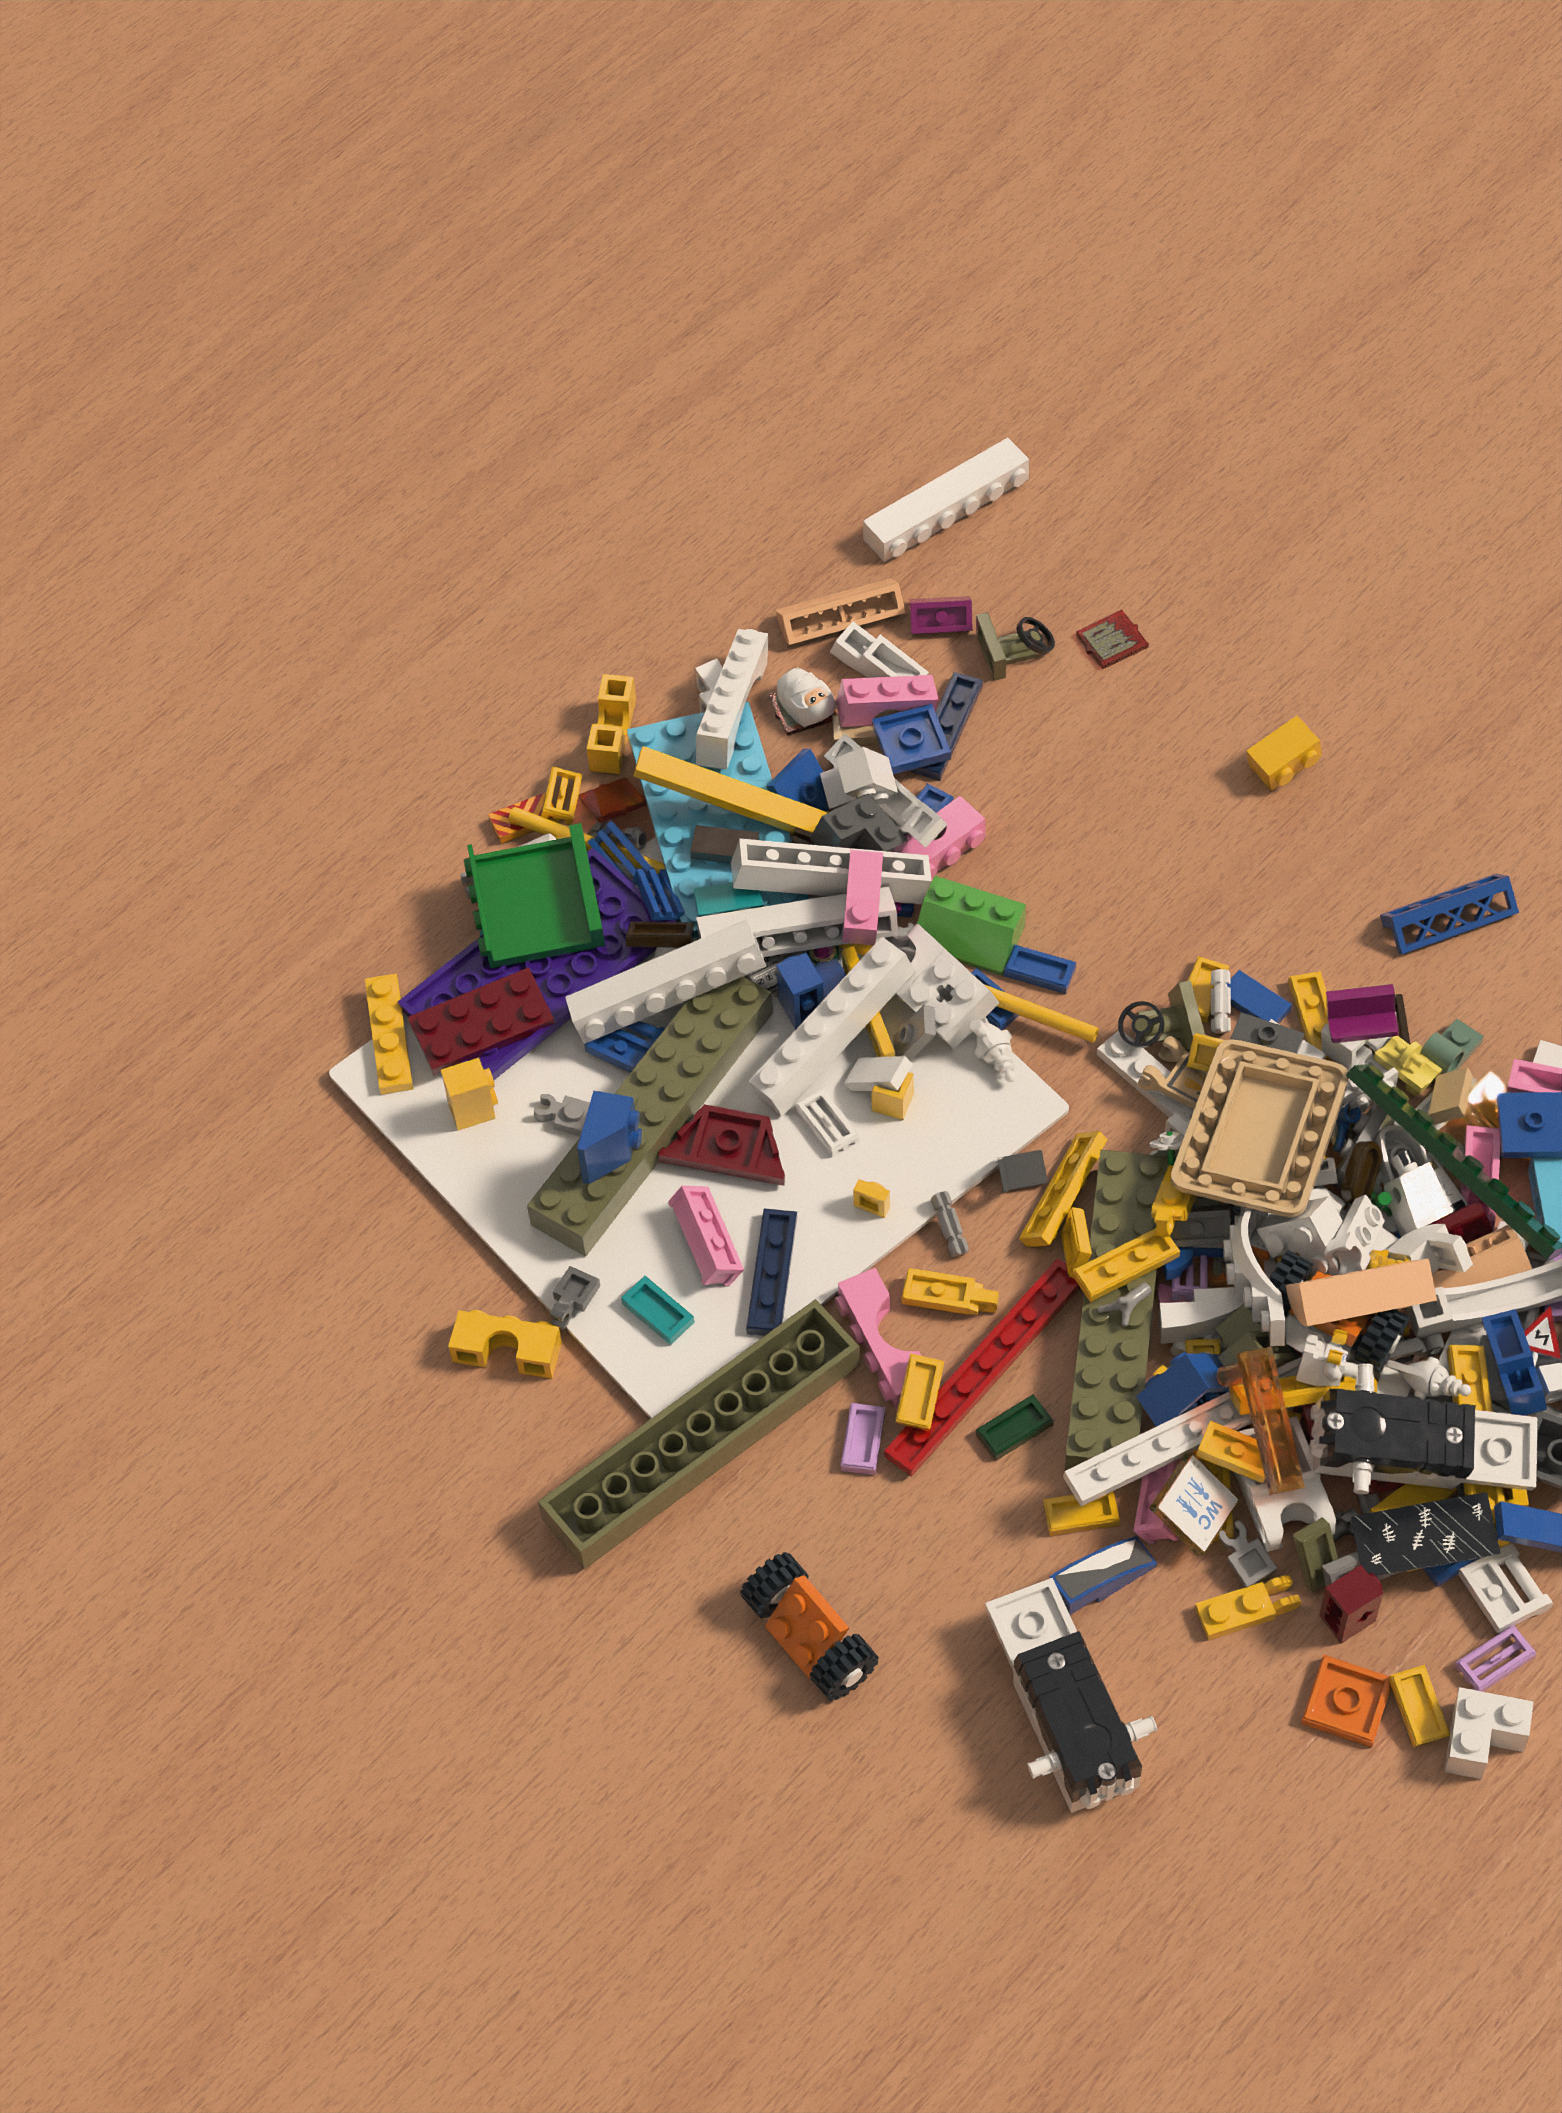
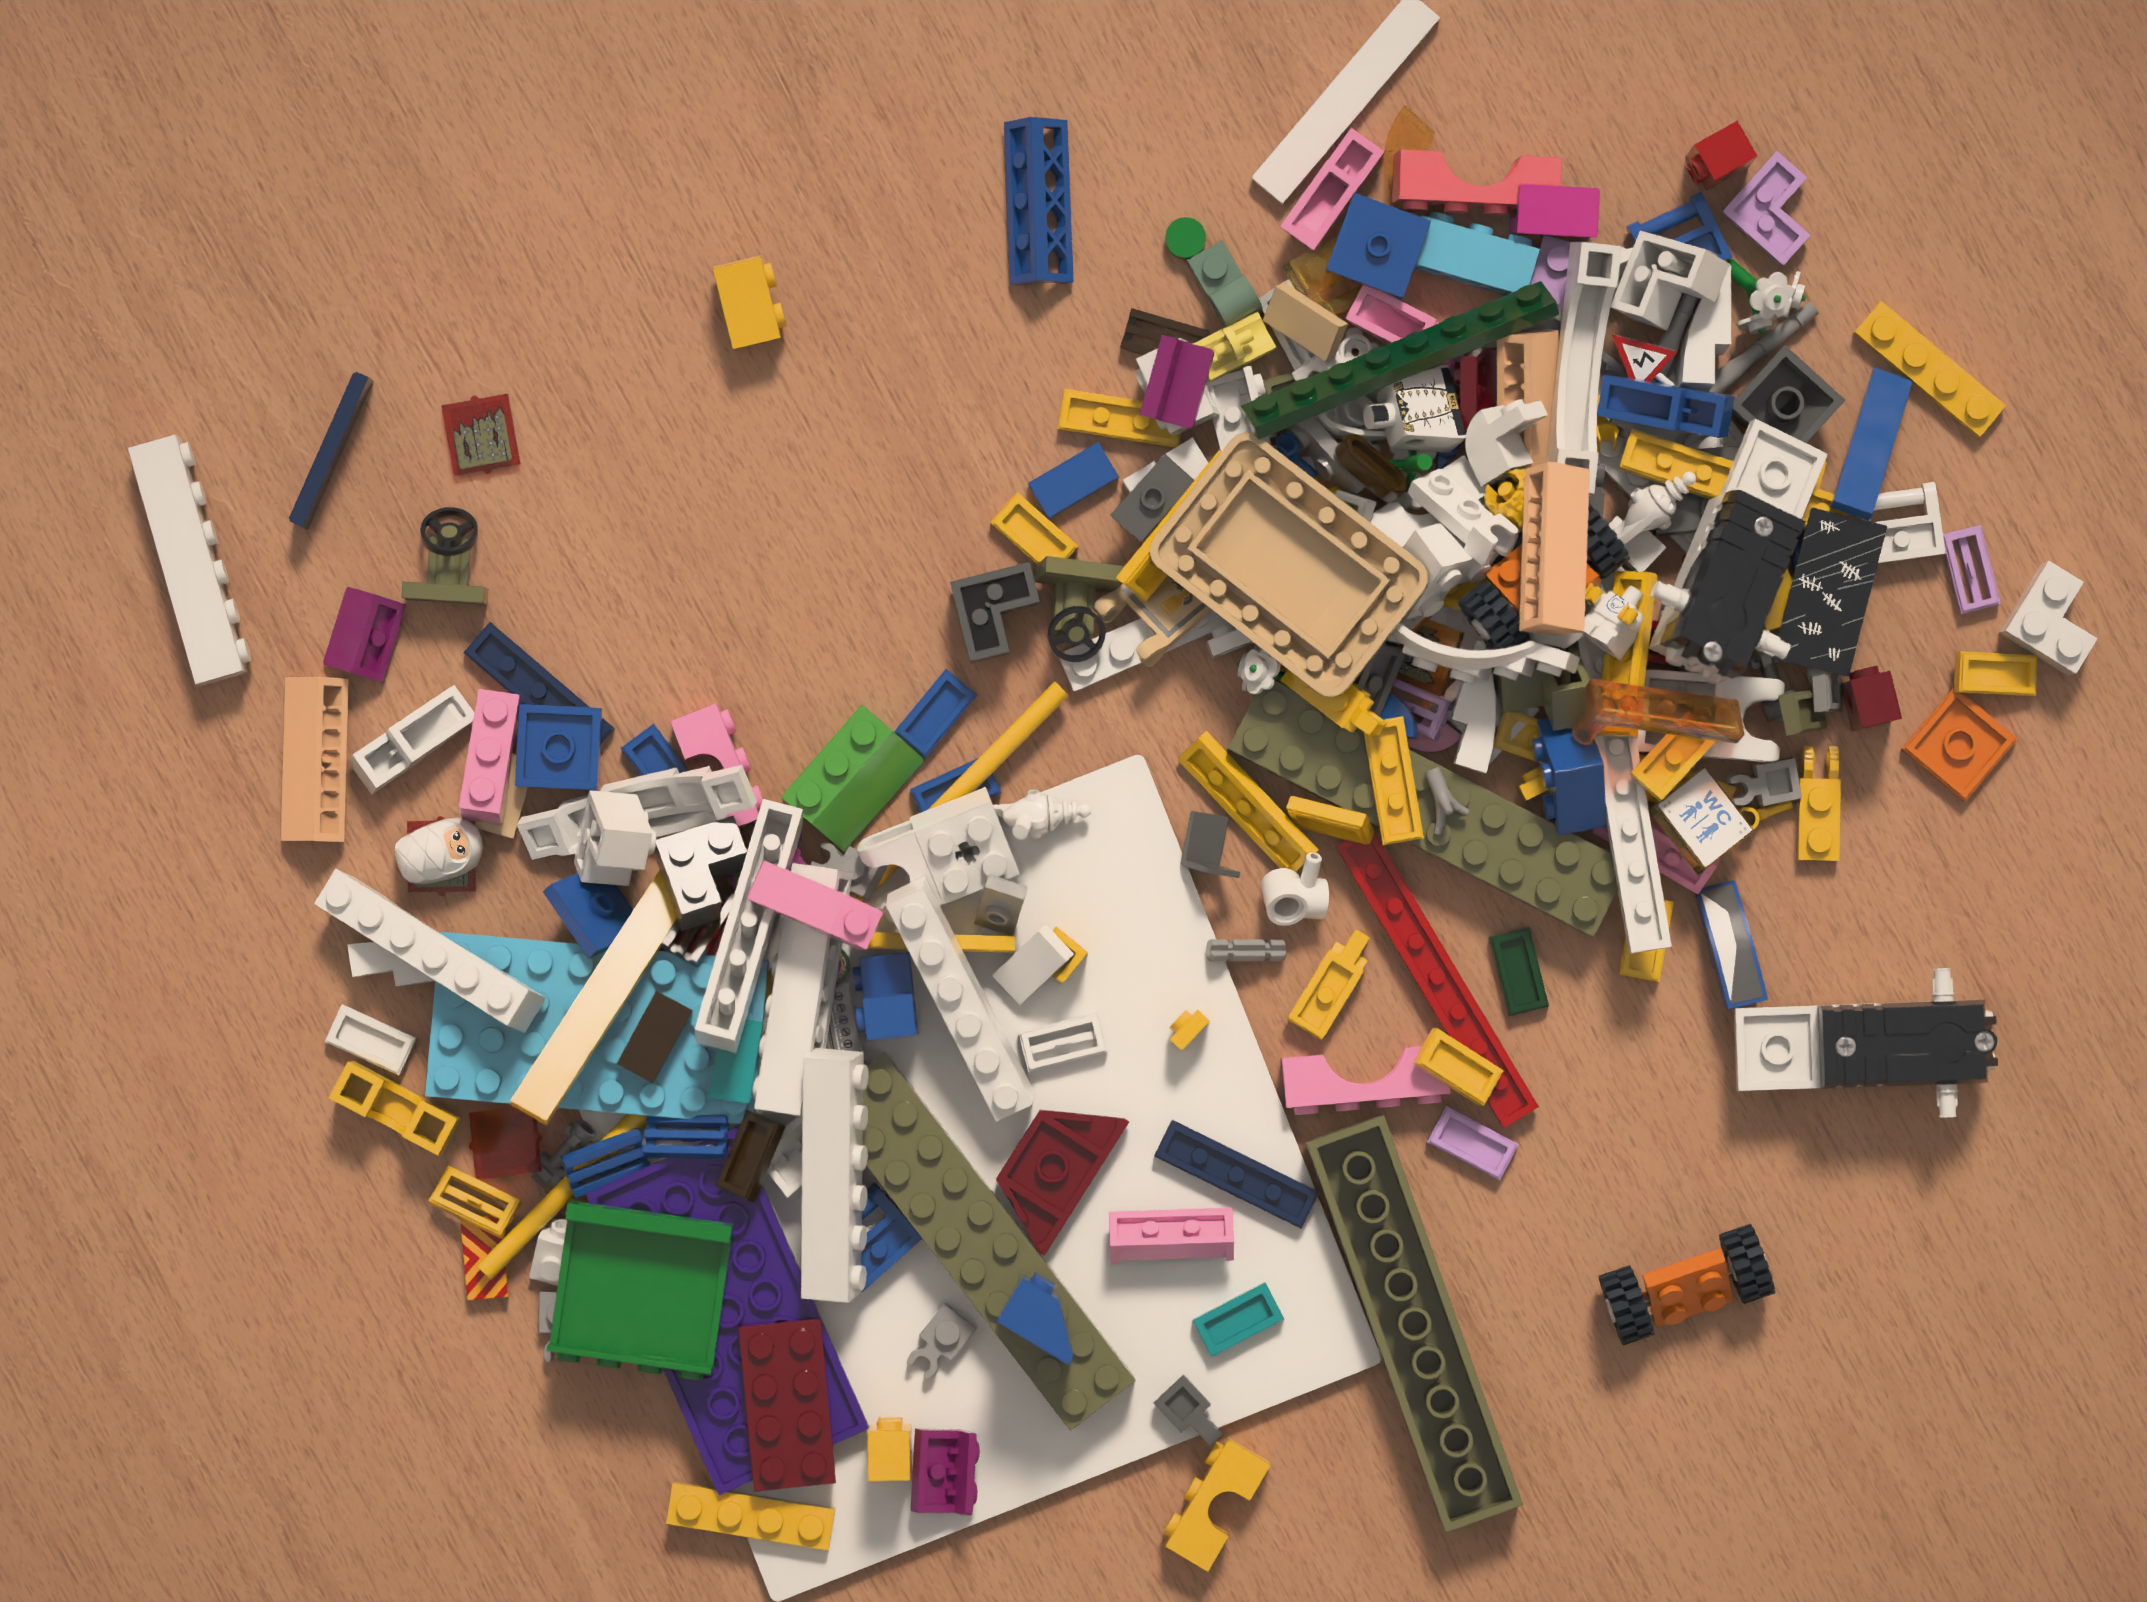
camera: 70 degrees left, 30 degrees up
(466, 1141) = (944, 1471): none -> magenta bracket
(655, 700) = (371, 1039): none -> white tile
(1010, 1250) = (1293, 897): none -> white piece
(1060, 553) = (330, 450): none -> dark blue tile
(1133, 963) = (983, 600): none -> dark grey brick
(1217, 1562) = (1764, 812): none -> yellow hand
(1220, 1001) = (1067, 524): white axle -> none
(1470, 1333) = (1605, 431): none -> yellow hand
(1473, 1013) = (1185, 238): none -> green tile

